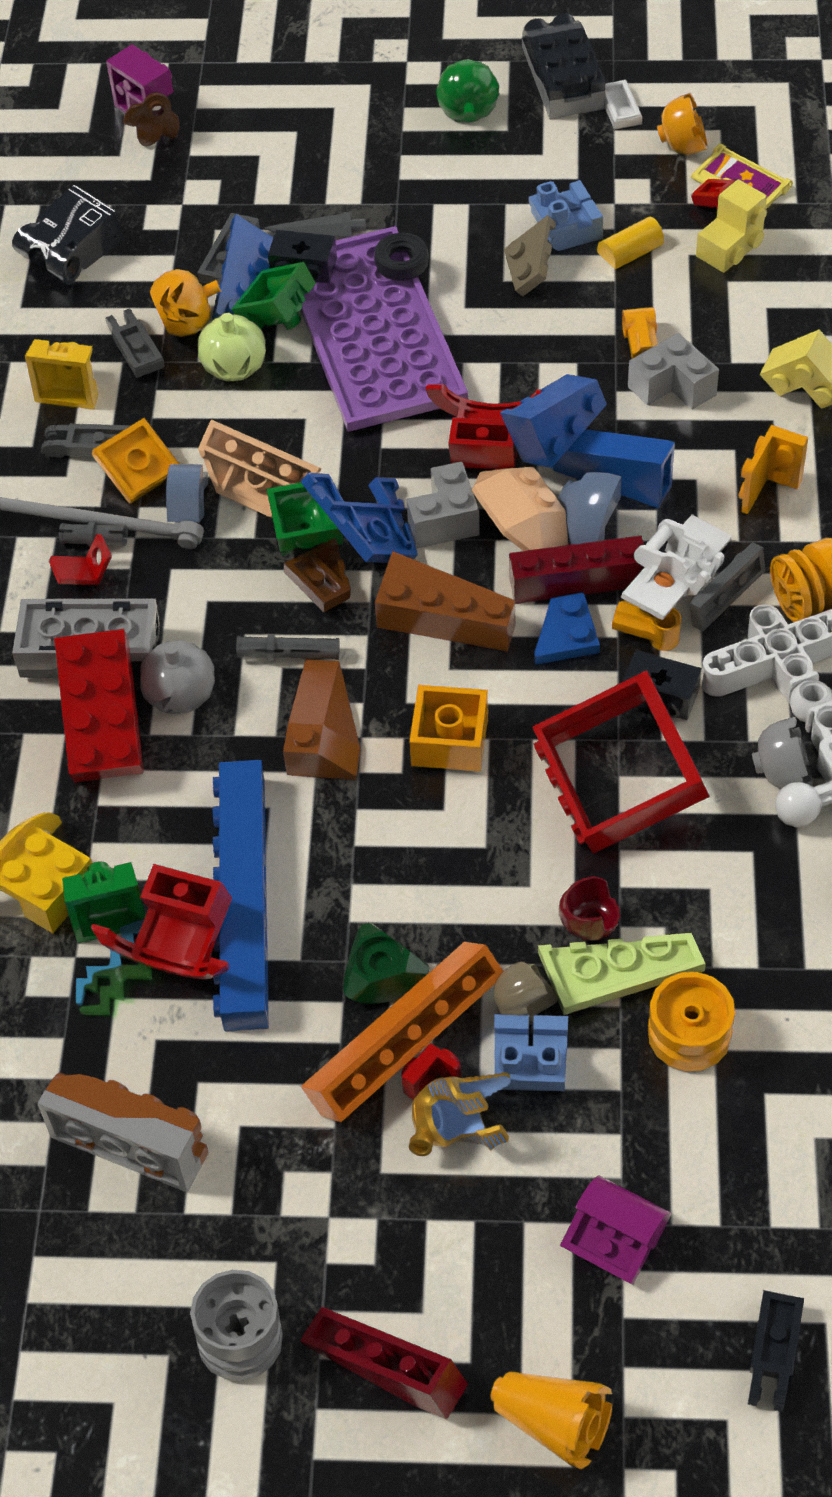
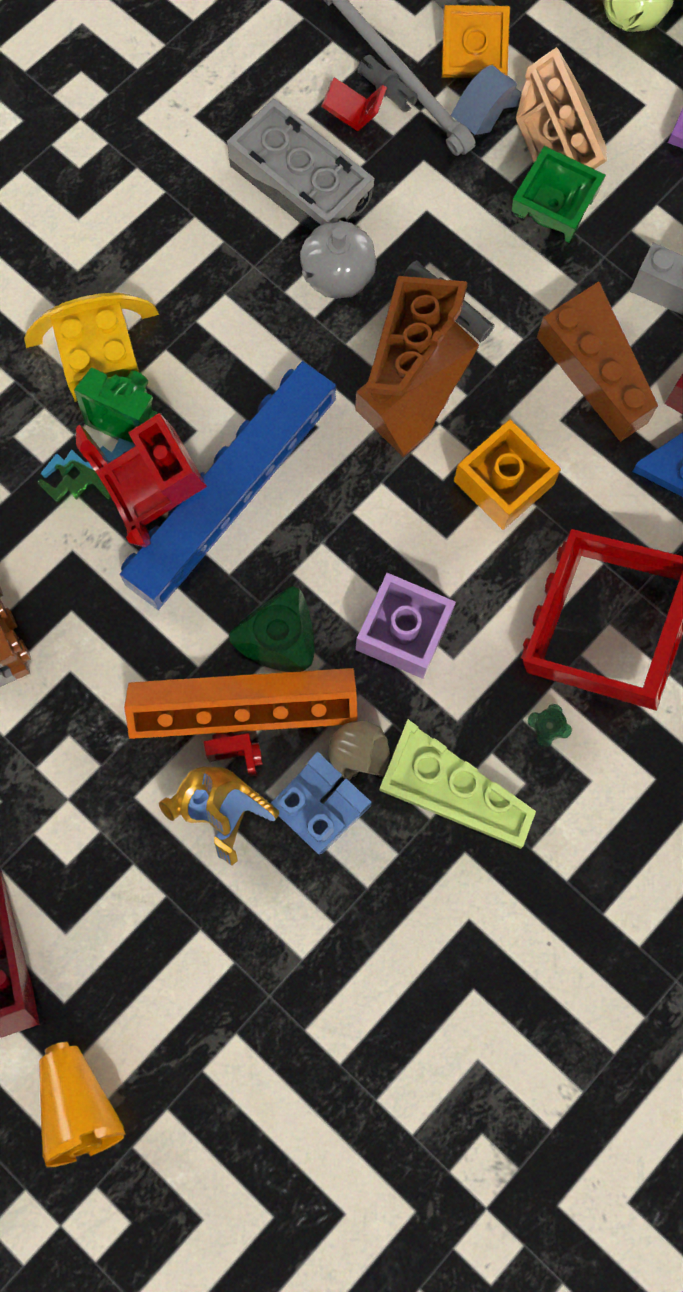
camera: 35 degrees right, 20 degrees up
(98, 705) = (252, 237): red brick -> none
(288, 676) = (414, 327): none -> dark orange wedge
(321, 575) = (530, 257): reddish brown wing -> none
(369, 527) = (599, 245): blue wing -> none
(475, 883) = (404, 625): none -> lavender brick
(589, 910) = (471, 725): dark red hair -> none
(615, 1228) = (254, 1002): magenta brick -> none
(644, 863) = (557, 718): none -> clear green plate
(691, 1021) = (471, 864): light orange wheel -> none
(775, 1345) = (286, 1202): black hinge -> none

